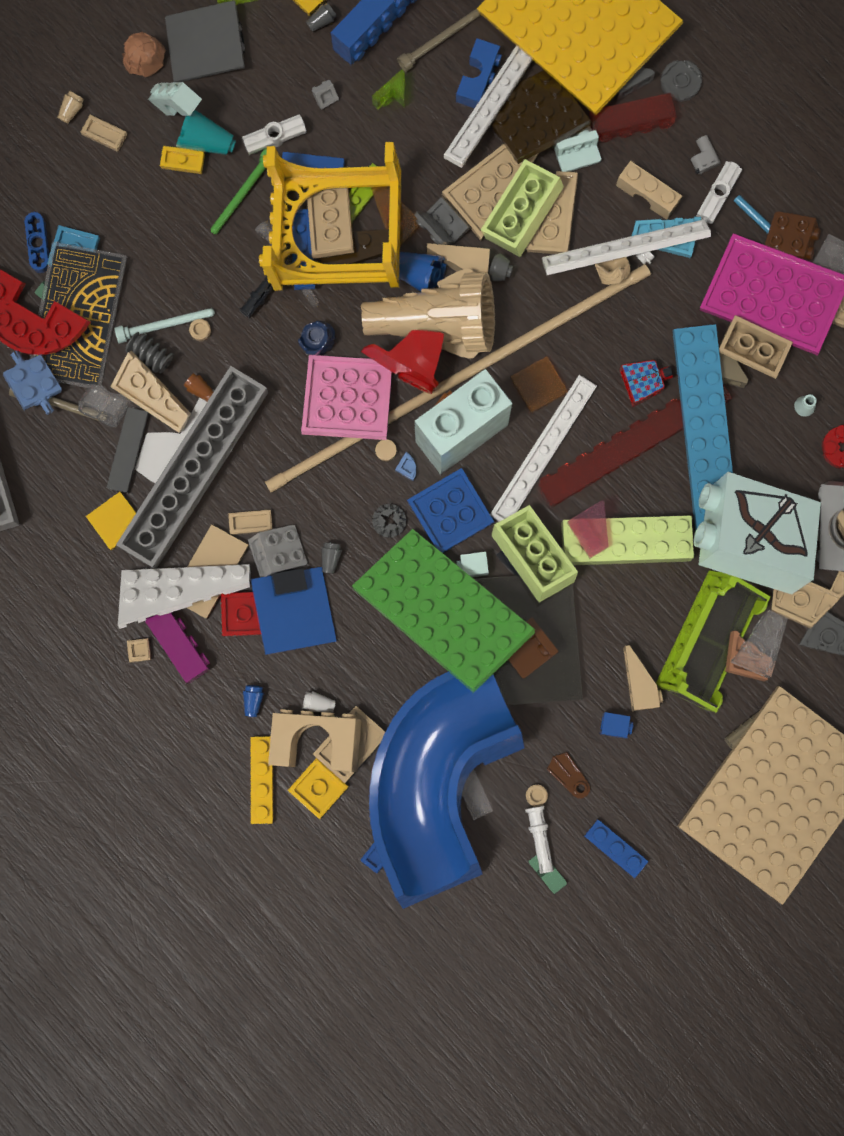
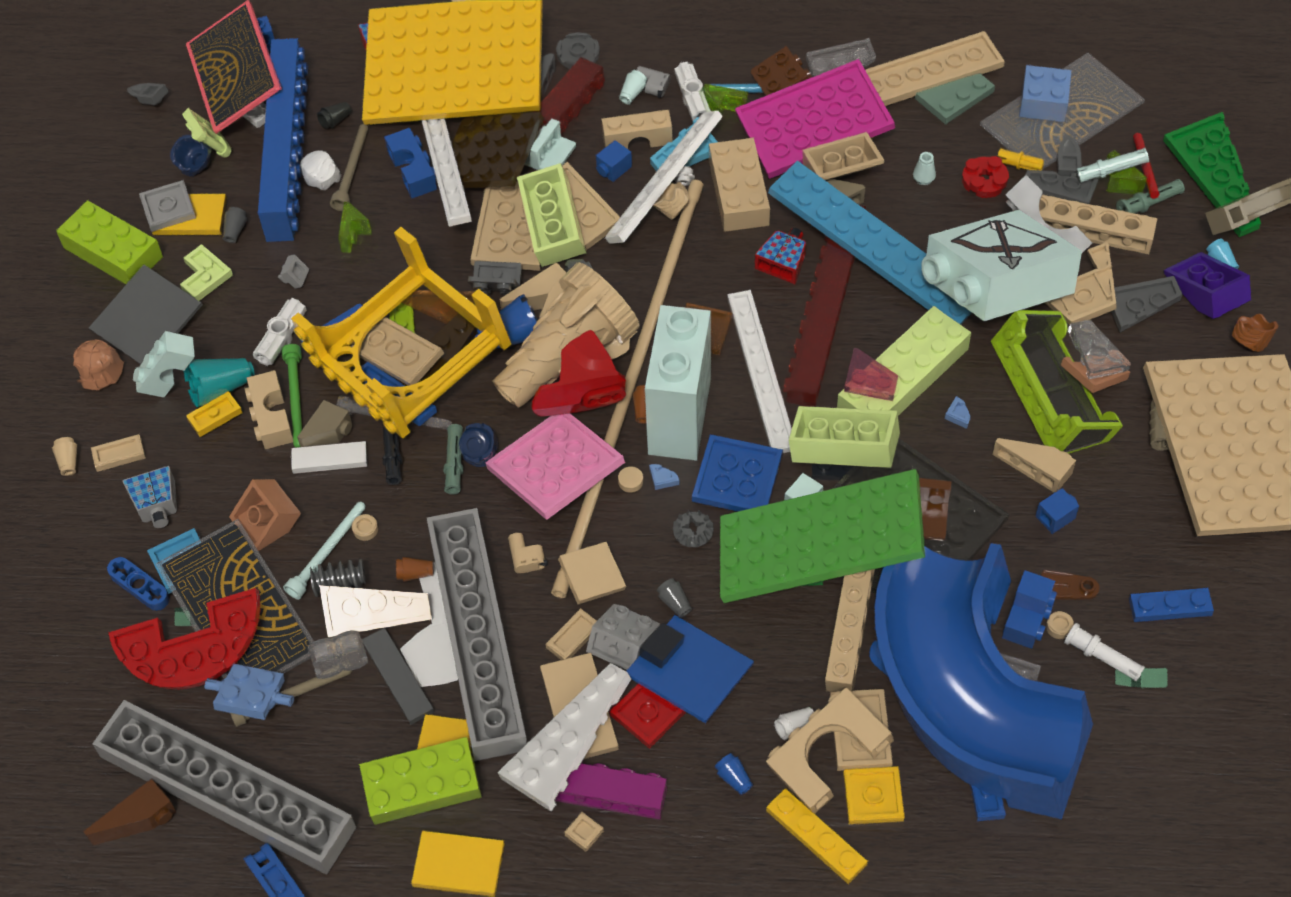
camera: 45 degrees left, 25 degrees down
(54, 601) = (458, 863): none -> yellow tile
(74, 534) = (420, 780): none -> lime brick
(95, 188) = (153, 495): none -> torso
(148, 264) = (265, 512): none -> nougat slope
(222, 173) = (272, 425): none -> tan arch
(223, 258) = (329, 457): none -> white tile
(238, 235) = (326, 426): none -> dark tan slope
(271, 443) = (525, 558): none -> tan piece
(273, 44) = (208, 274): none -> yellowish green plate
(287, 340) = (453, 466): none -> sand green pin
(298, 493) = (592, 573): none -> tan tile
(398, 684) = (849, 631): none -> tan brick
(415, 24) = (319, 170): none -> white hair
(522, 772) = (1031, 605): none -> blue brick
(609, 199) = (613, 161): none -> blue brick
(632, 600) = (958, 413): none -> medium blue tile
(671, 297) = (739, 184): none -> tan brick
(685, 148) = (633, 85): none -> light aqua cone
(732, 215) = (724, 98): none -> clear neon green slope

